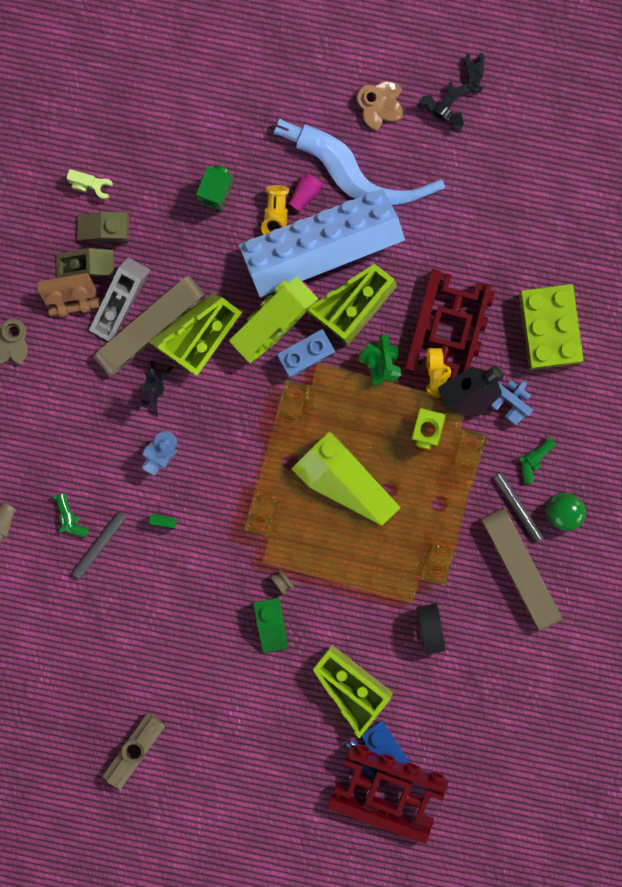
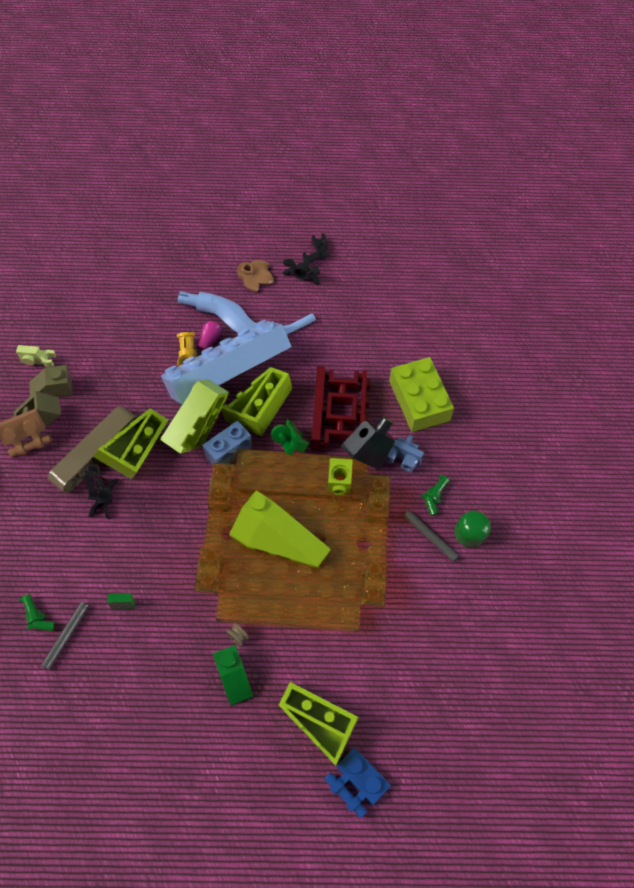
camera: 10 degrees left, 25 degrees down
(119, 299) = (67, 430): light grey slope -> none
(124, 764) = (105, 844): dark tan piece -> none
(160, 452) = (111, 542): medium blue hips -> none
(215, 187) = (135, 339): green brick -> none
(379, 811) = (372, 842): dark red fence -> none
(431, 629) = (380, 648): black tyre -> none
(437, 371) = (334, 429): yellow connector -> none
(521, 569) = (448, 585): dark tan beam -> none

